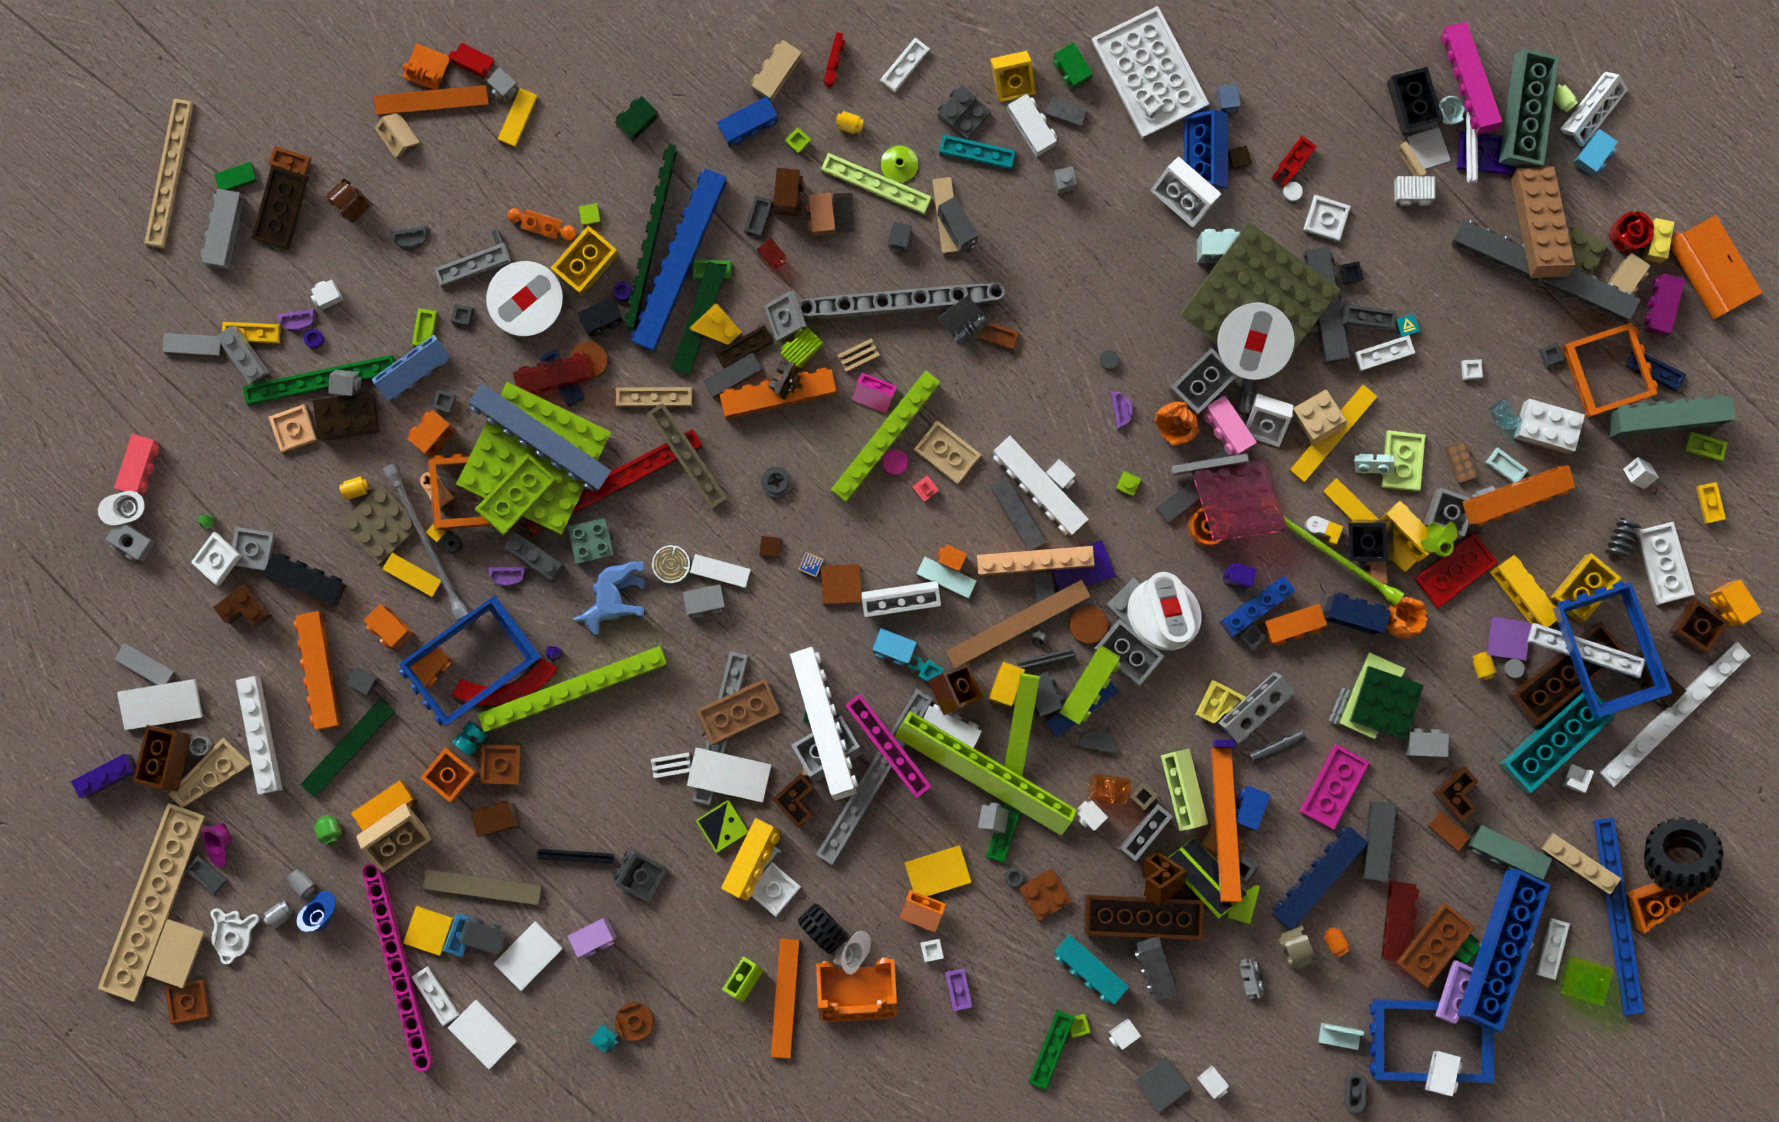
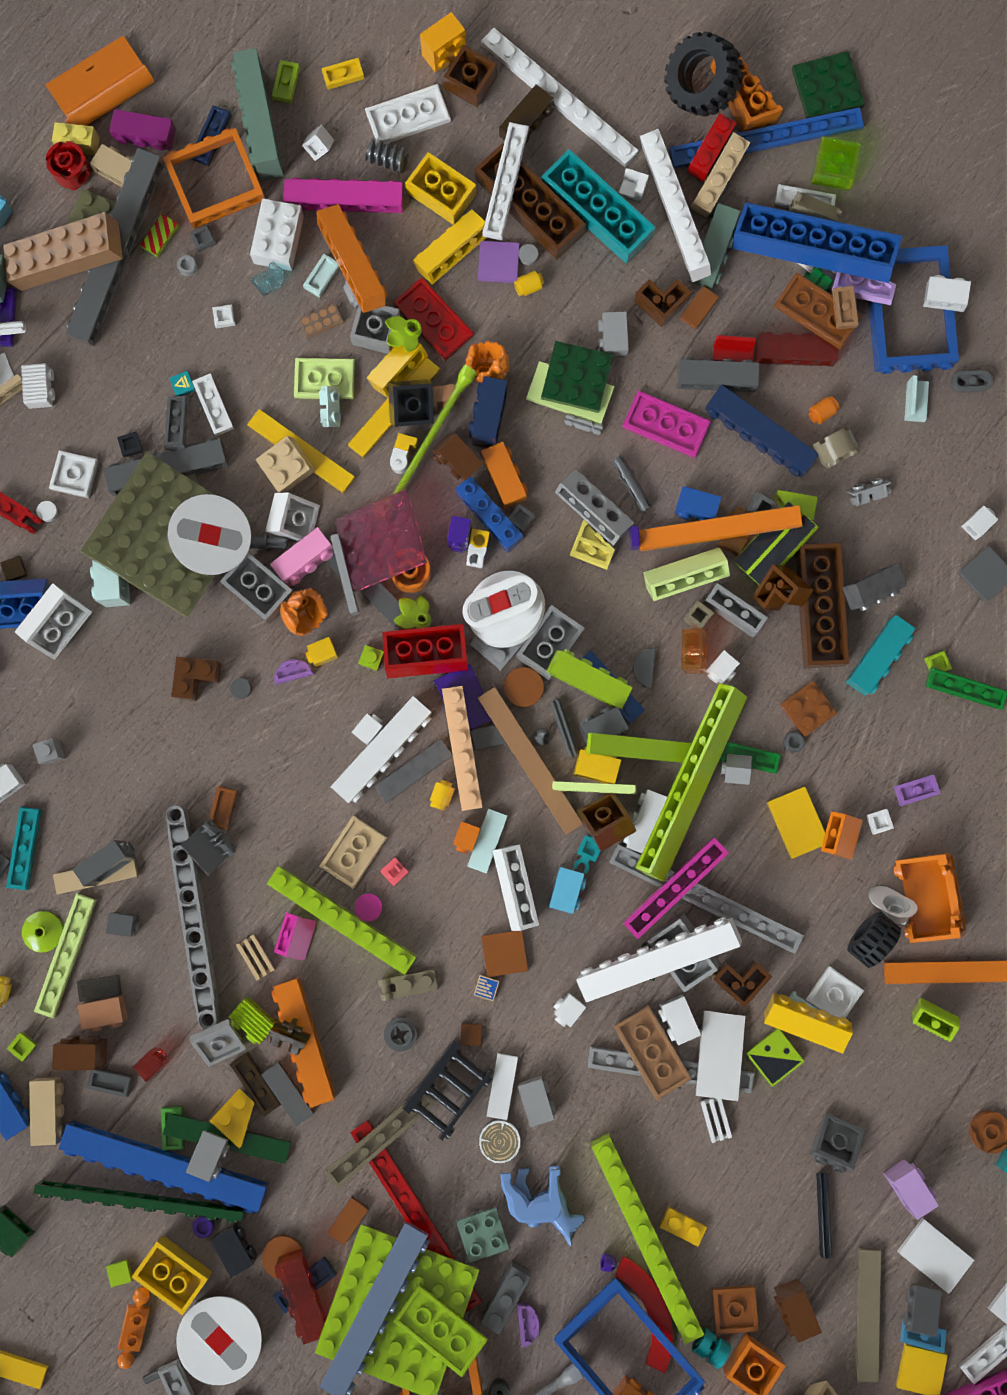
camera: 90 degrees left, 0 degrees up
(578, 725) = (683, 1226): none -> yellow plate
(614, 421) = (348, 1220): none -> dark orange tile
(654, 396) = (317, 1179): tan tile -> none
(686, 300) = (207, 1156): none -> light grey brick
(727, 502) = (427, 1087): none -> black fence
(738, 159) = (46, 1111): none -> tan brick
(765, 740) = (679, 1019): none -> white brick
(784, 637) = (568, 1010): none -> white brick
(820, 493) = (408, 984): none -> dark tan plate
(987, 680) = (594, 787): none -> yellowish green tile
(993, 538) = (441, 795): none -> yellow brick
(1124, 1034) = (942, 616): white brick -> none
(1128, 315) = (189, 673): none -> reddish brown brick
(1130, 533) = (425, 651): none -> red brick
(1137, 437) = (321, 652): none -> yellow brick
(1169, 525) = (411, 611): none -> lime plate
(1225, 592) = (477, 548): none -> leg
(1317, 578) = (455, 453): none -> reddish brown brick
(1403, 859) = (733, 348): none -> red panel
(1435, 969) = (845, 307): none -> medium nougat plate
(1525, 338) = (187, 265): none -> light grey tile
(1539, 954) = (813, 207): none -> dark tan brick
(1552, 815) = (675, 205): none -> white brick
(1557, 314) = (159, 235): none -> tile
(1584, 497) = (350, 195): none -> dark pink brick
(1609, 857) = (711, 147): none -> red brick
(1661, 684) = (534, 103): blue window -> none
(1670, 985) = (828, 85): none -> dark green plate

